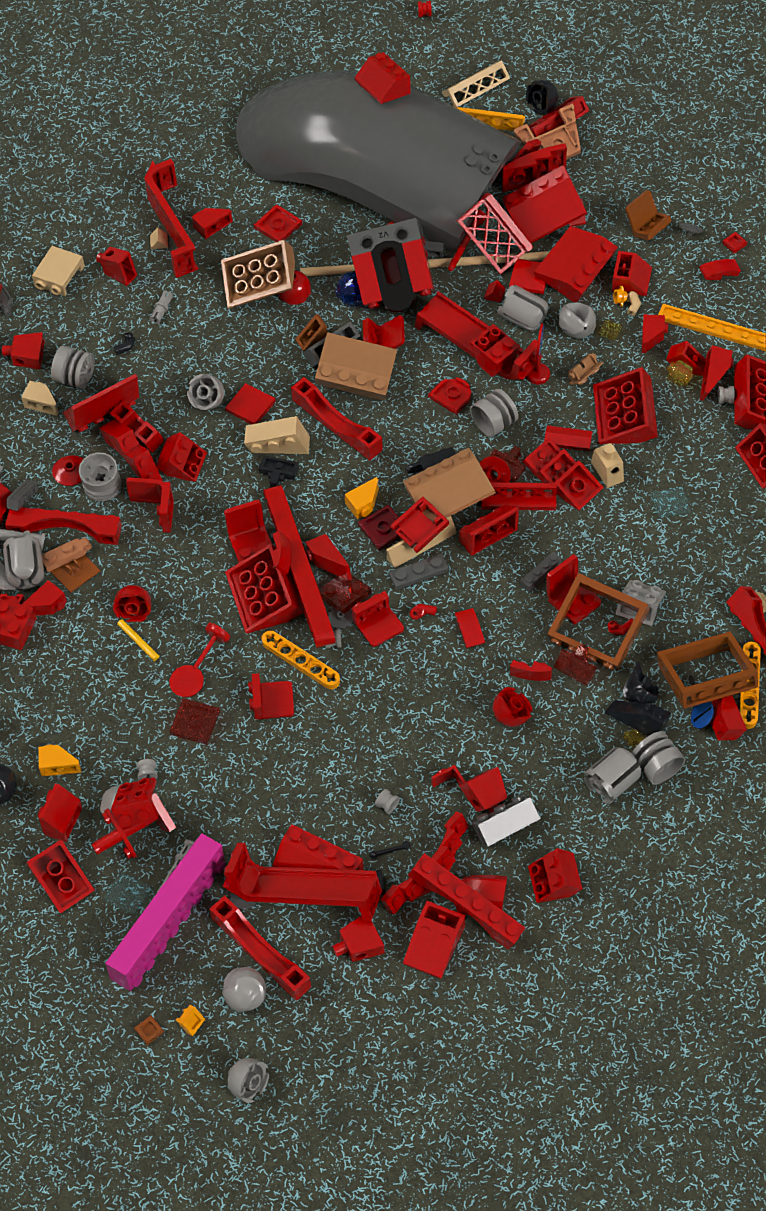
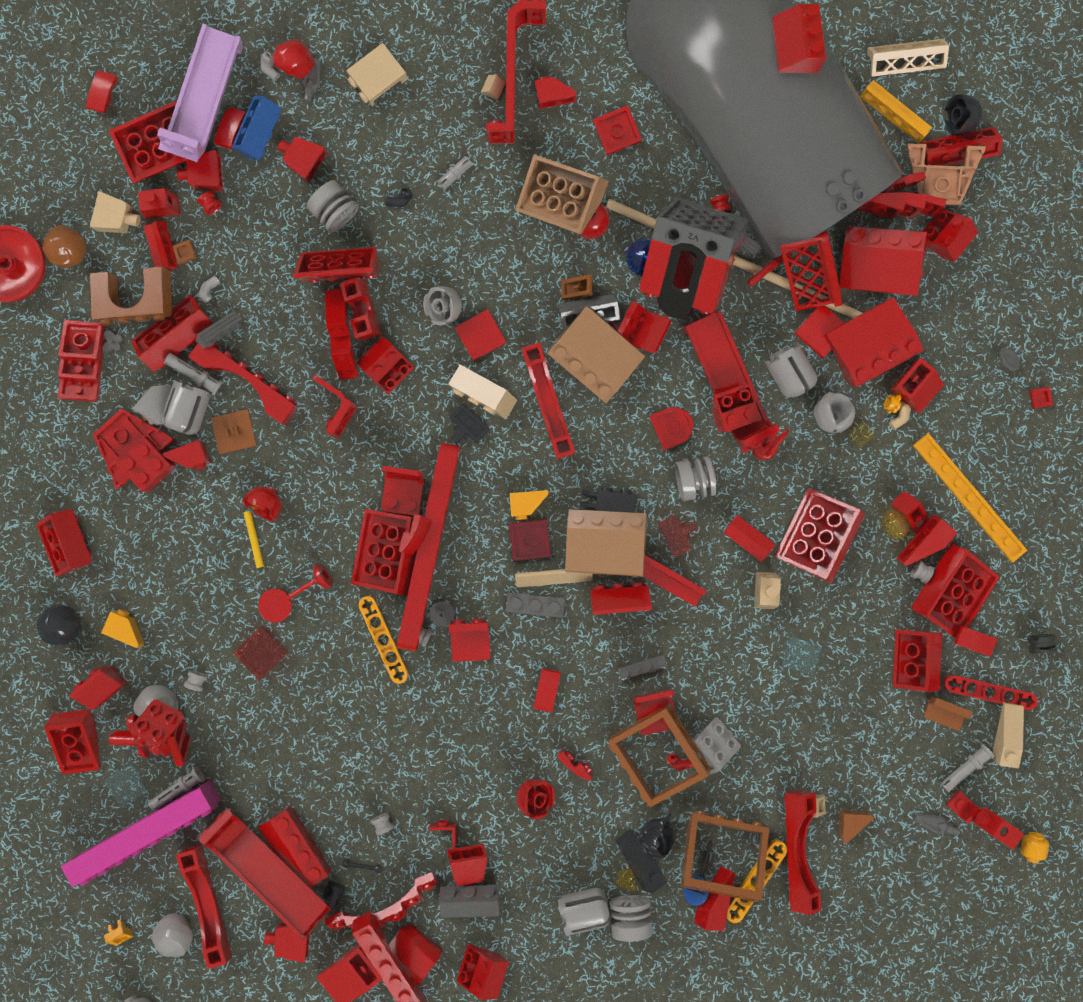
camera: 25 degrees right, 30 degrees up
(39, 398) = (289, 221): tan slope -> none
(65, 475) = (290, 320): red dish -> none
(65, 553) = (231, 412): nougat hinge -> none
(100, 476) = (292, 340): light grey wheel -> none
(117, 265) = (434, 100): red torso -> none
(149, 1030) = (83, 921): dark orange tile -> none
(271, 698) = (336, 667): red bracket -> none
(327, 557) = (458, 545): red slope -> none
(344, 593) = (457, 593): clear red plate -> none
(416, 527) = (554, 571): red container -> none
(421, 610) = (515, 646): red arm -> none
(495, 291) = (778, 329): red slope -> none
(496, 464) = (658, 544): red dish -> none
(573, 479) = (721, 575): red slope -> none
(576, 664) = (616, 781): clear red hinge -> none
(587, 171) = (950, 234): none -> red slope
(590, 366) = (803, 473): medium nougat hinge -> none
(644, 217) = (973, 327): dark orange bracket -> none
(653, 331) = (899, 460): red slope -> none
(716, 269) = (1006, 424): red slope -> none

